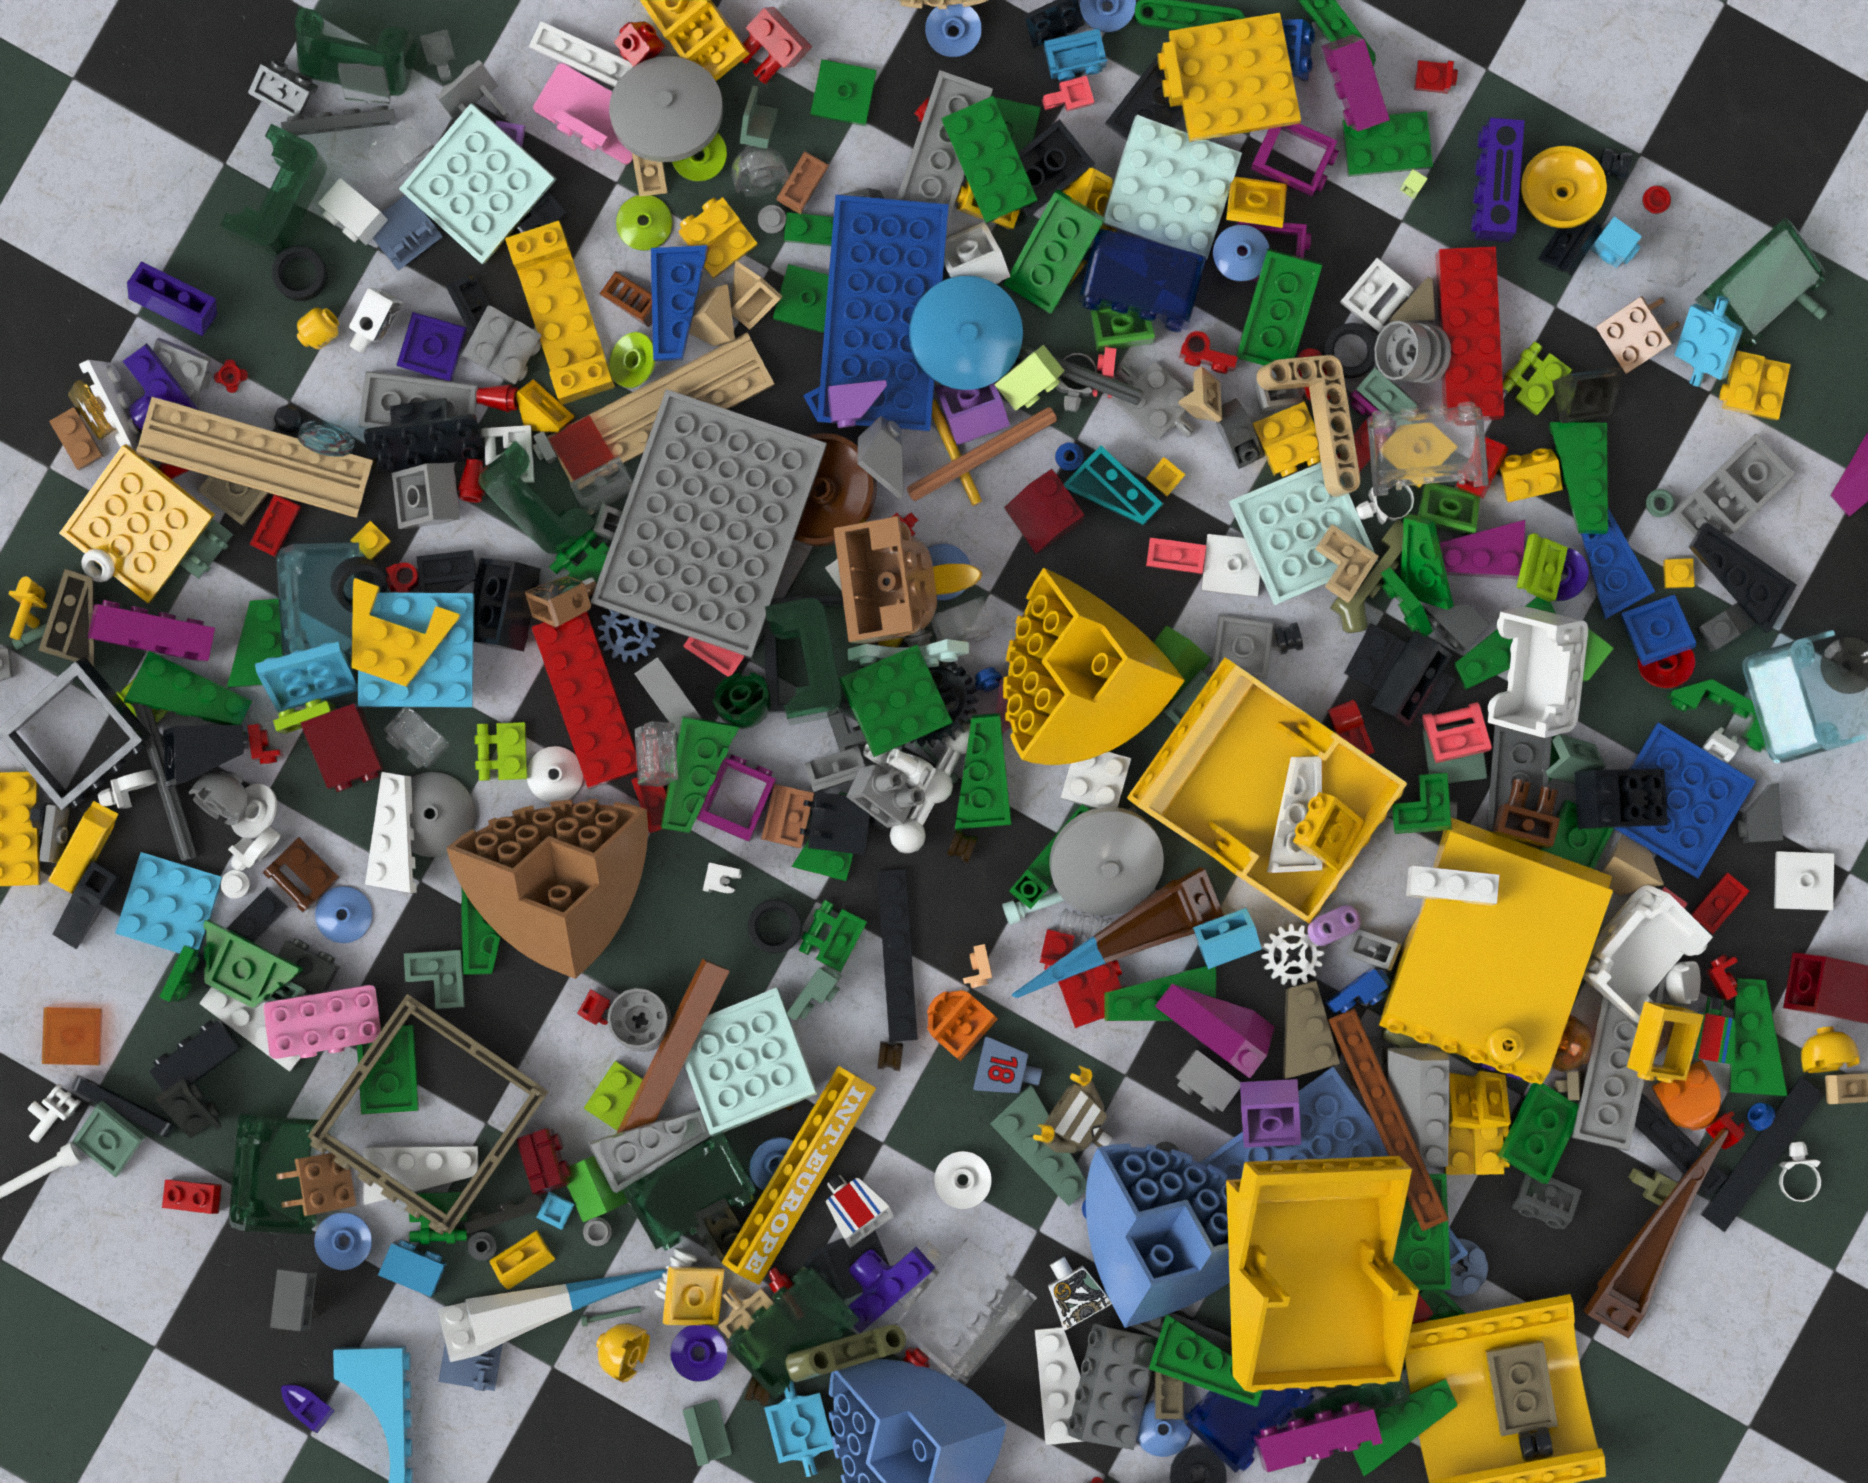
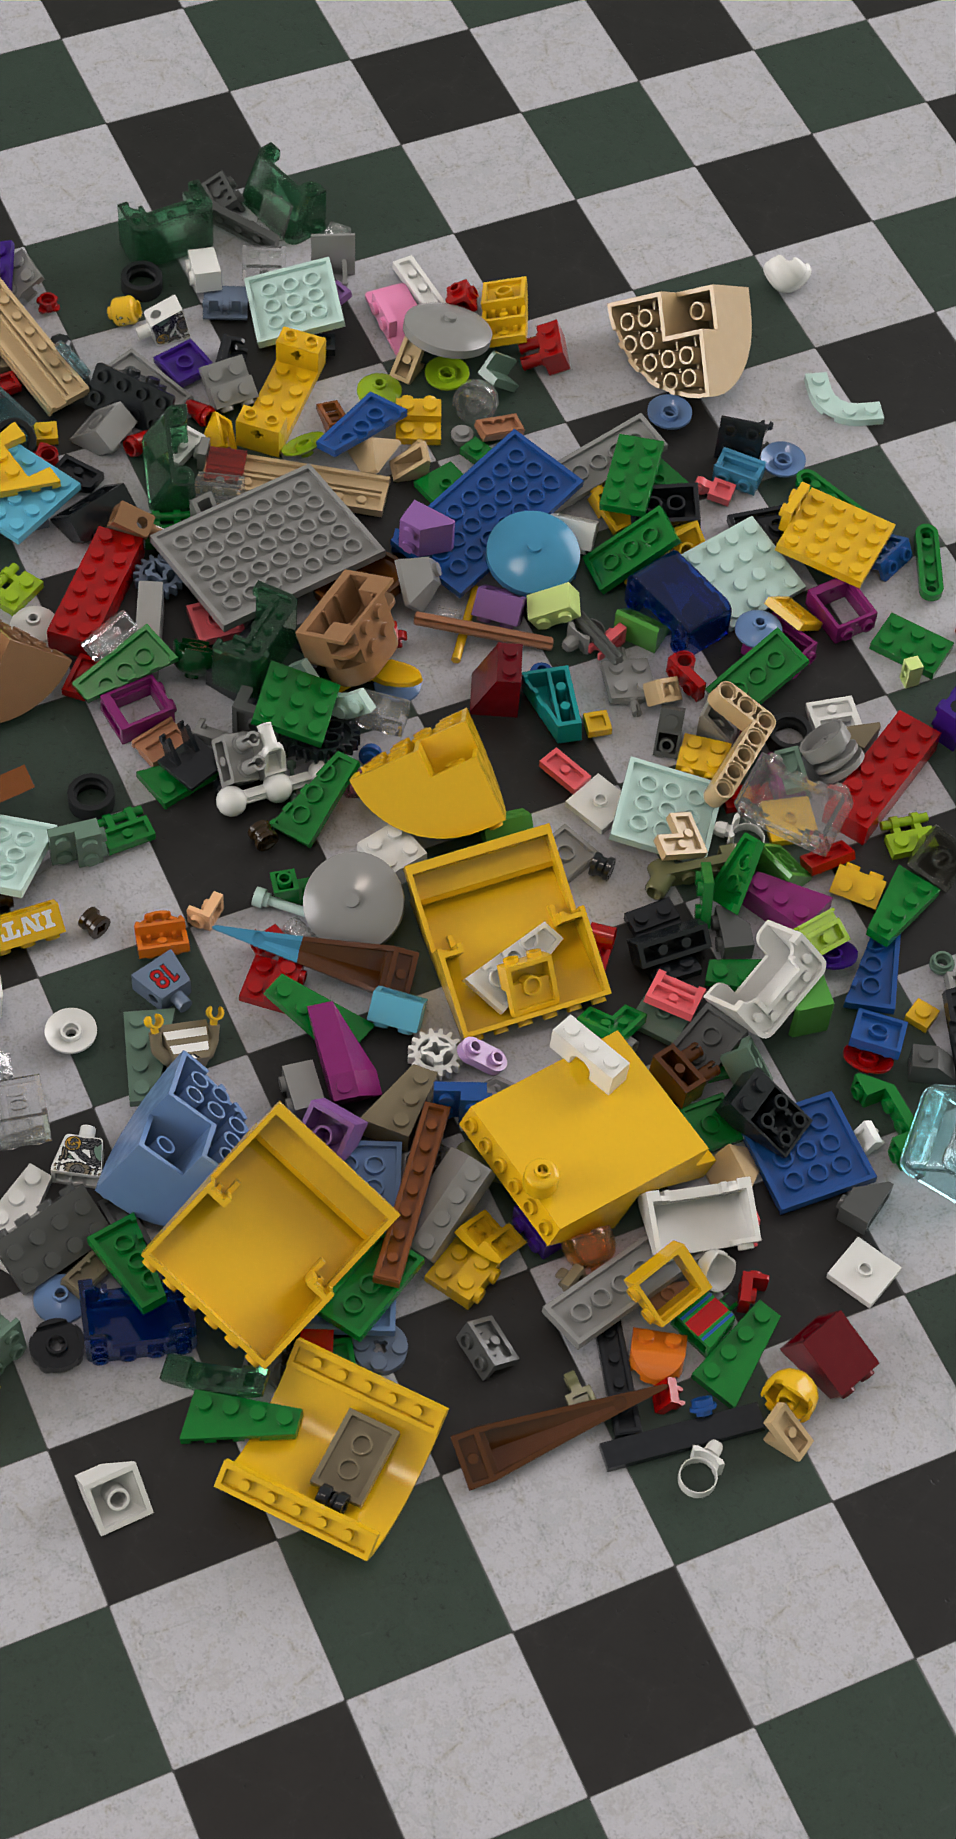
camera: 30 degrees right, 30 degrees down
(172, 298) = (52, 241): dark purple brick -> none
(716, 878) = (81, 738): white hinge -> none
(843, 92) = (568, 403): green plate -> none
(897, 955) = (157, 872): black plate -> none
(1317, 1436) = (169, 1367): magenta wedge -> none
(1355, 82) = (916, 585): magenta wedge -> none
(1540, 1132) = (518, 1290): green plate -> none
(1719, 903) = (786, 1240): red plate -> none

